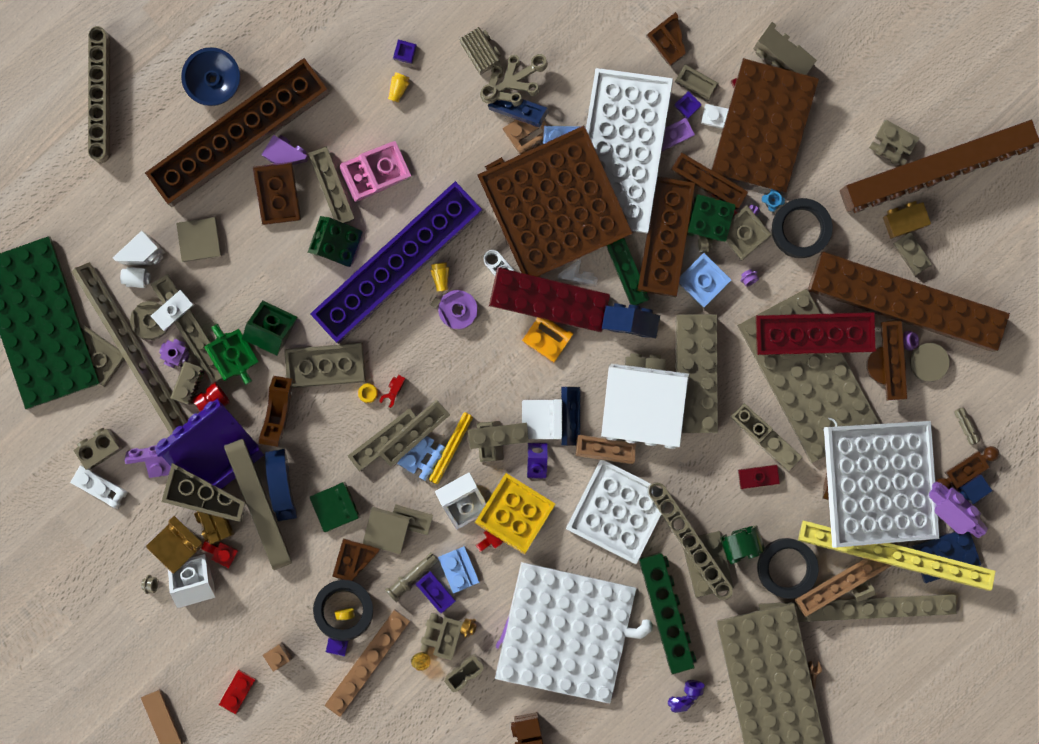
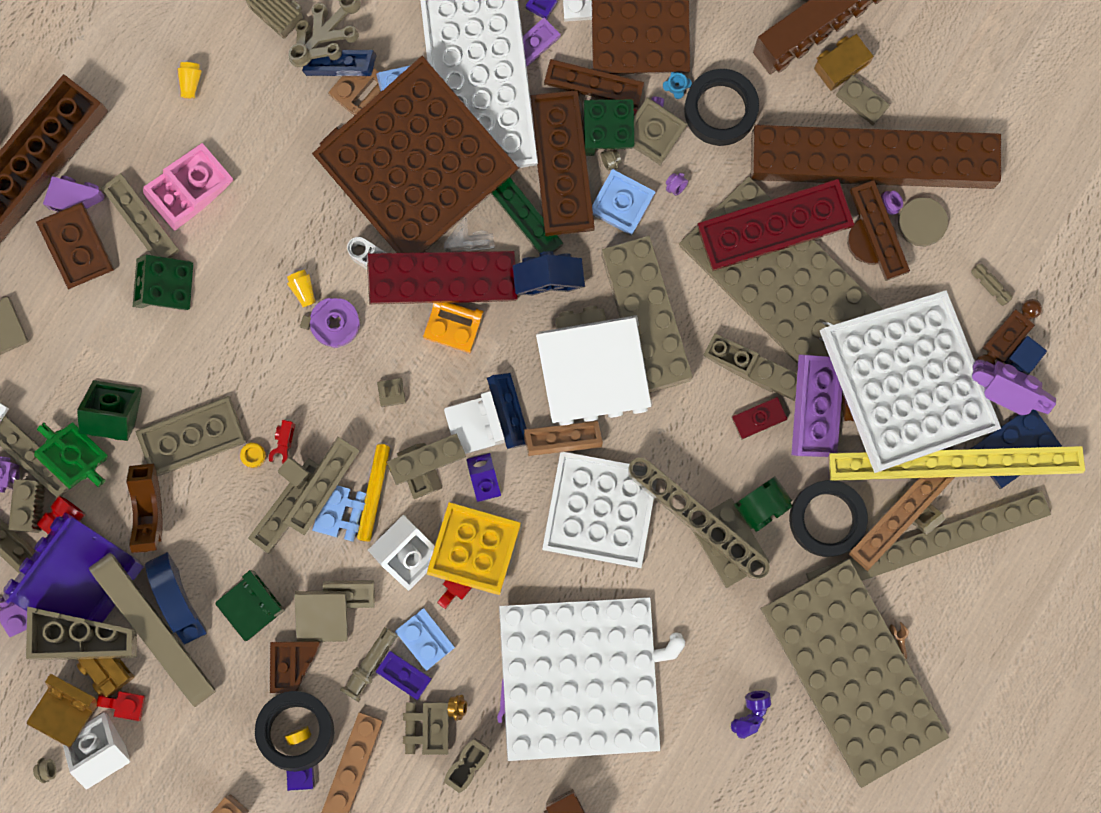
camera: 10 degrees left, 5 degrees down
(396, 262) = (243, 286): dark purple brick -> none
(396, 417) = (294, 473): none -> dark tan slope
(405, 51) = (185, 36): dark purple tile -> none
(421, 661) = (409, 766): clear yellow plate -> none
(485, 375) = (391, 392): none -> dark tan tile
(676, 663) = (726, 676): dark green brick -> none
(804, 483) = (816, 408): none -> medium lavender plate

